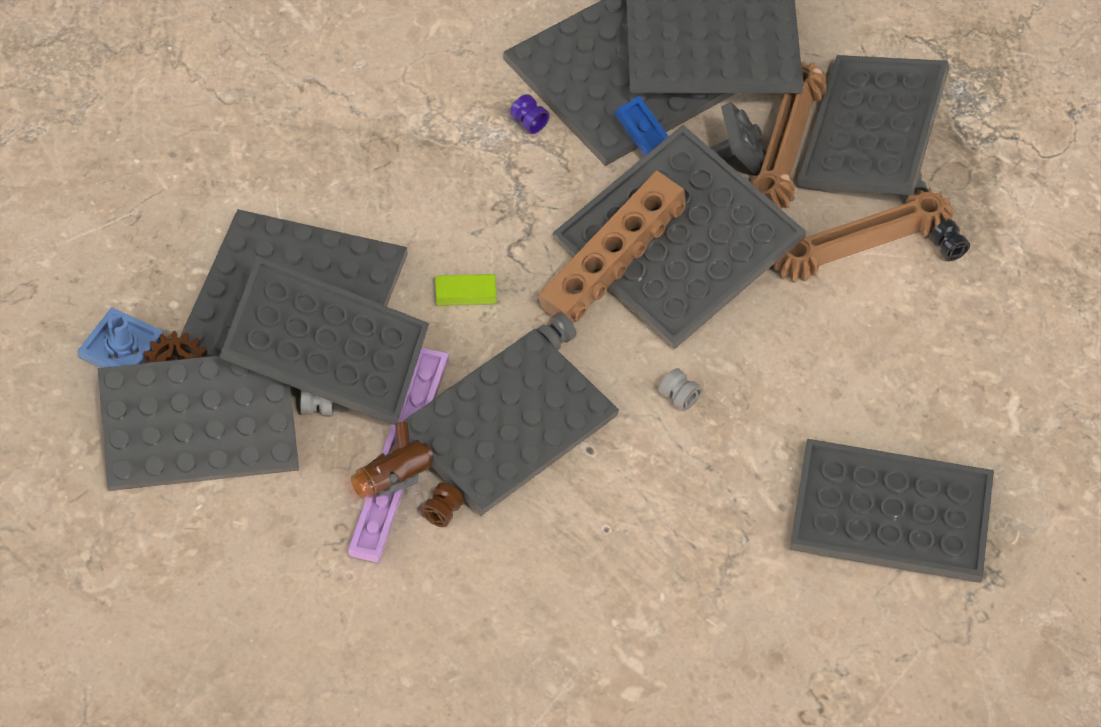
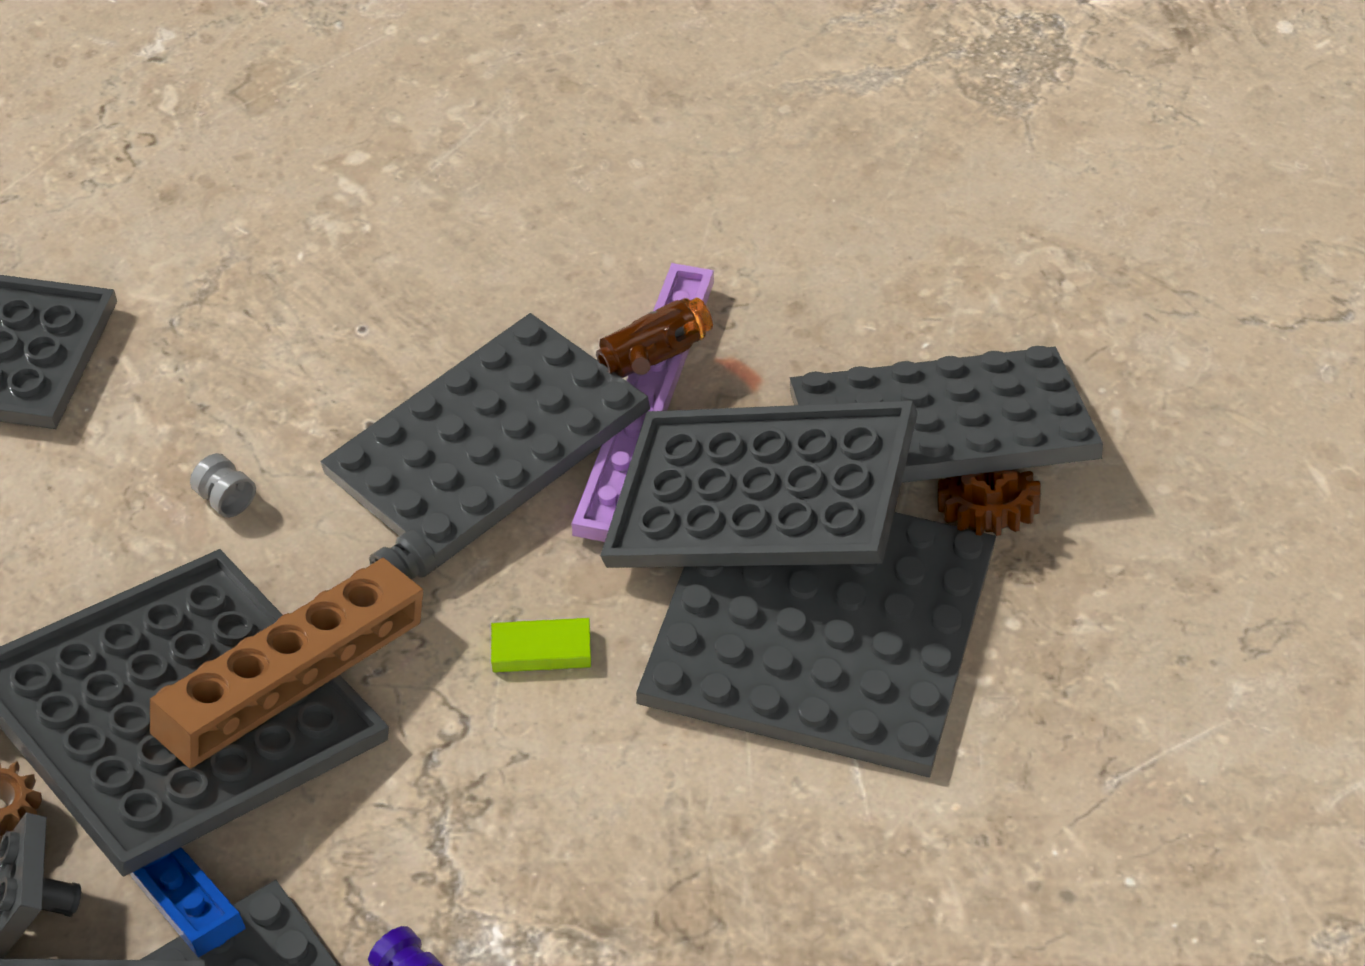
camera: 175 degrees left, 5 degrees down
(118, 336) = (1082, 530): medium blue plate -> none
(443, 503) = (588, 324): reddish brown wheel -> none

